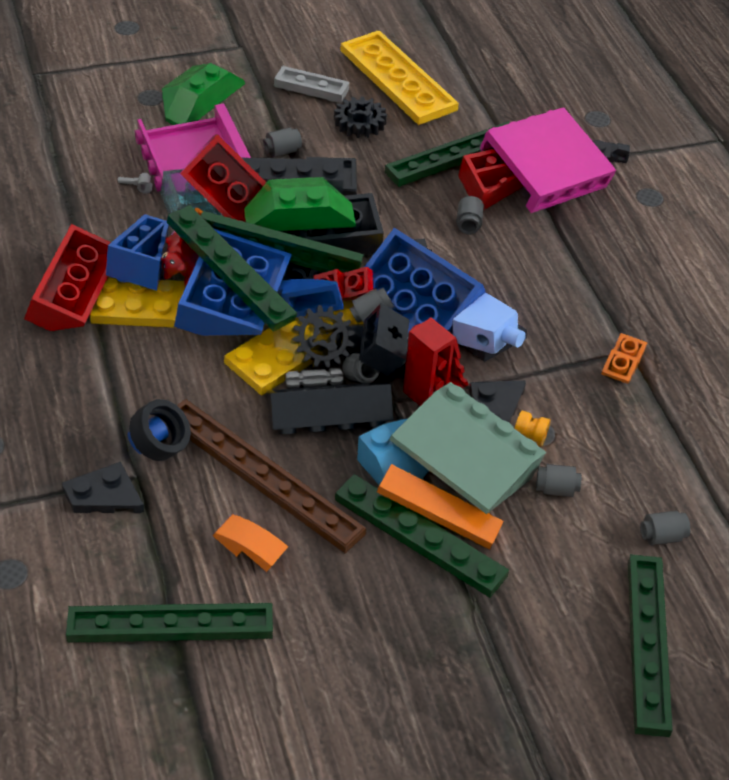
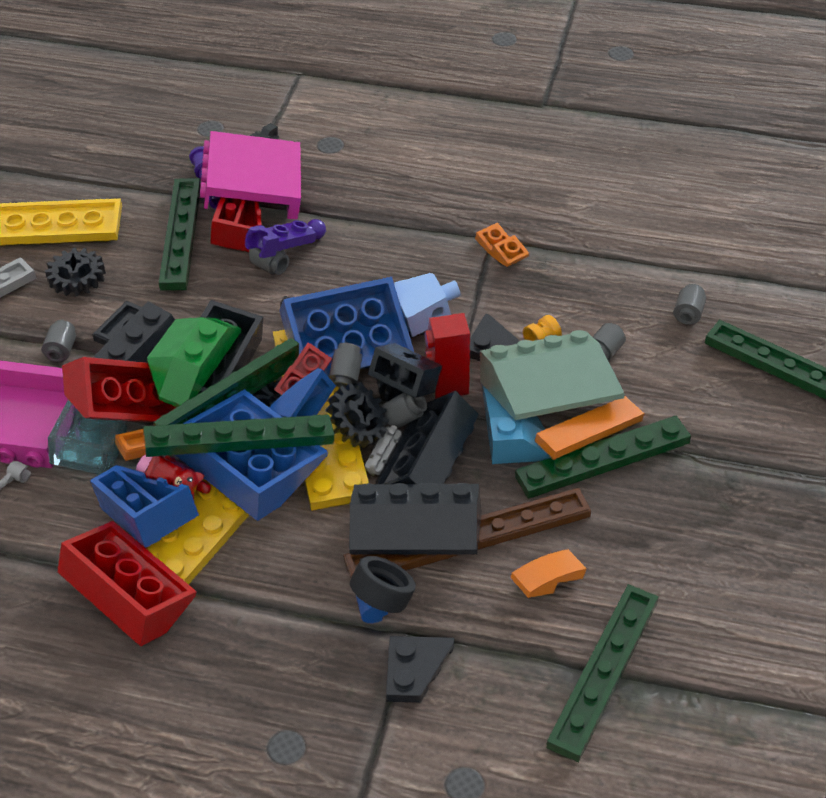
camera: 55 degrees left, 0 degrees up
(242, 424) = (415, 519): none -> black slope
(493, 209) = (283, 236): none -> dark purple plate

